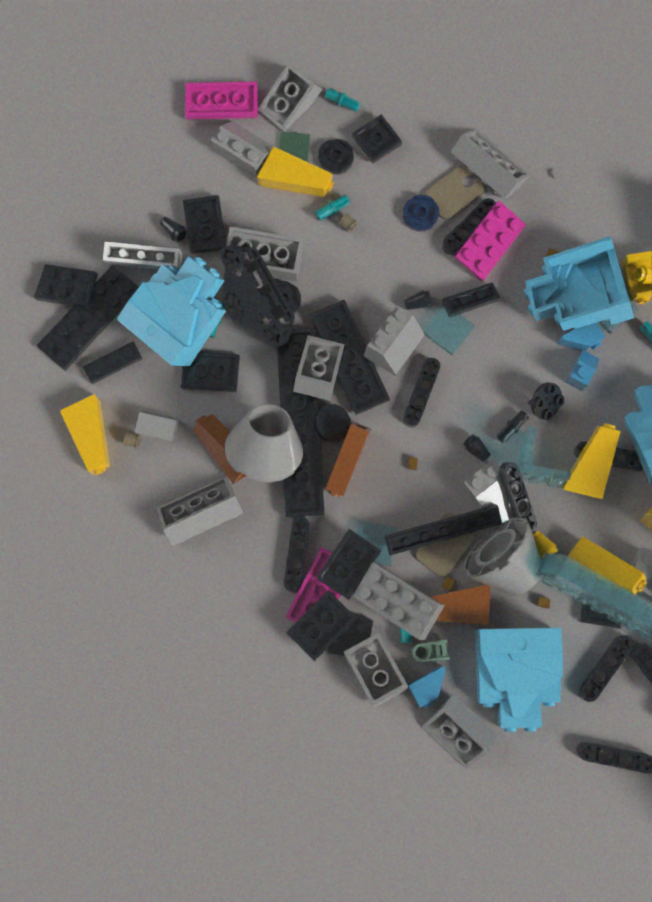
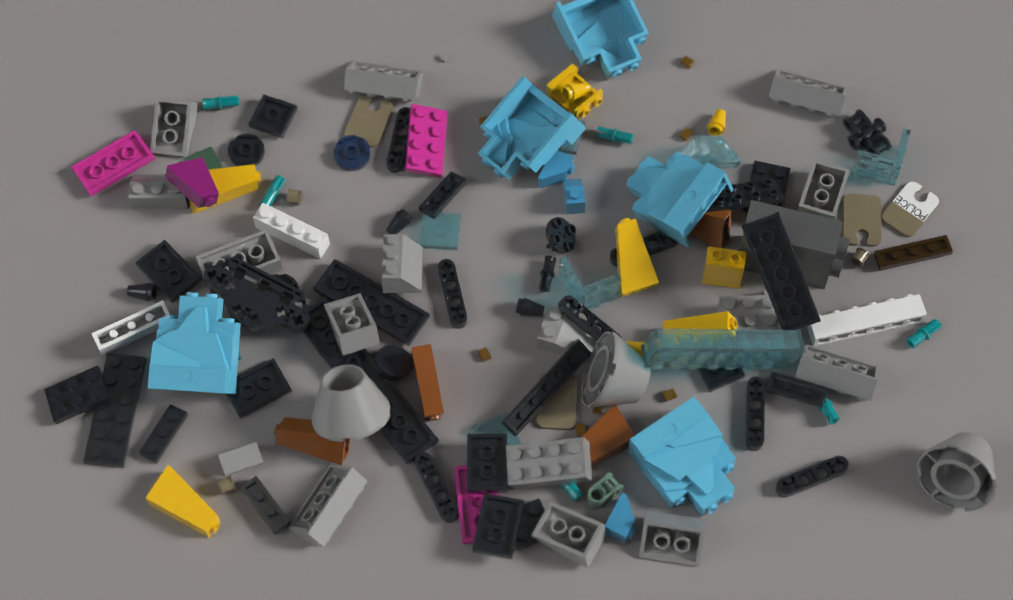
camera: 35 degrees left, 15 degrees down
(151, 478) = (265, 505): none -> black plate
(270, 158) = (193, 181): none -> magenta slope
(325, 252) = (291, 230): none -> white brick

